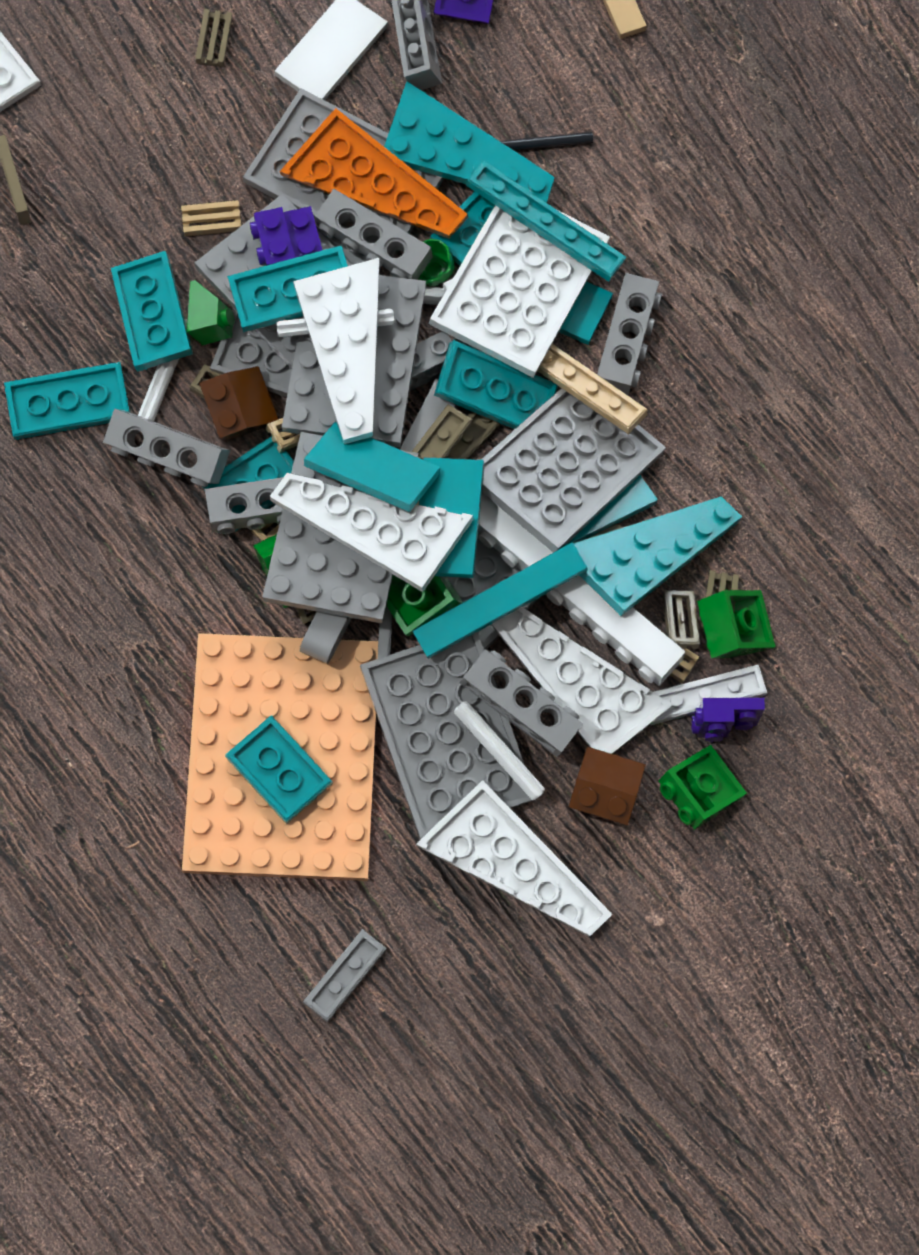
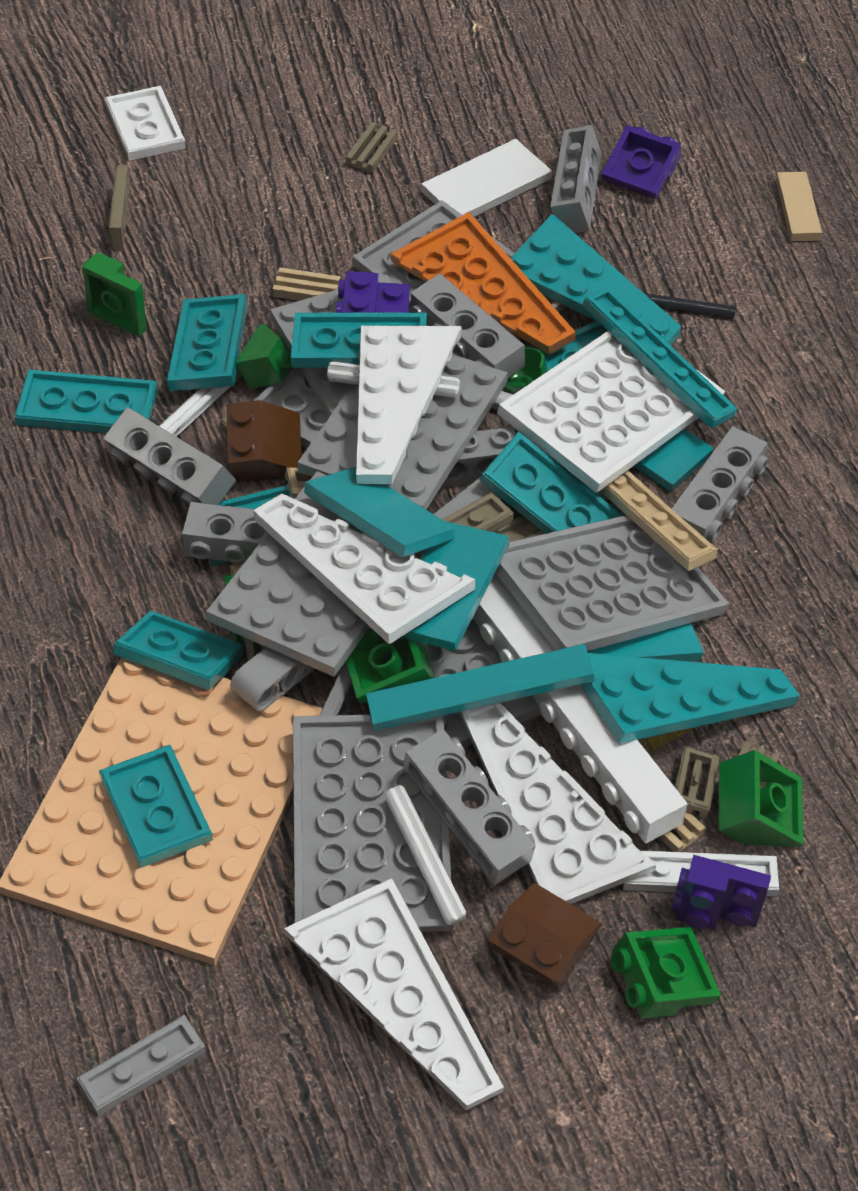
camera: 20 degrees right, 20 degrees down
(48, 288) = (113, 294): none -> green plate
(242, 625) = (179, 650): none -> teal tile

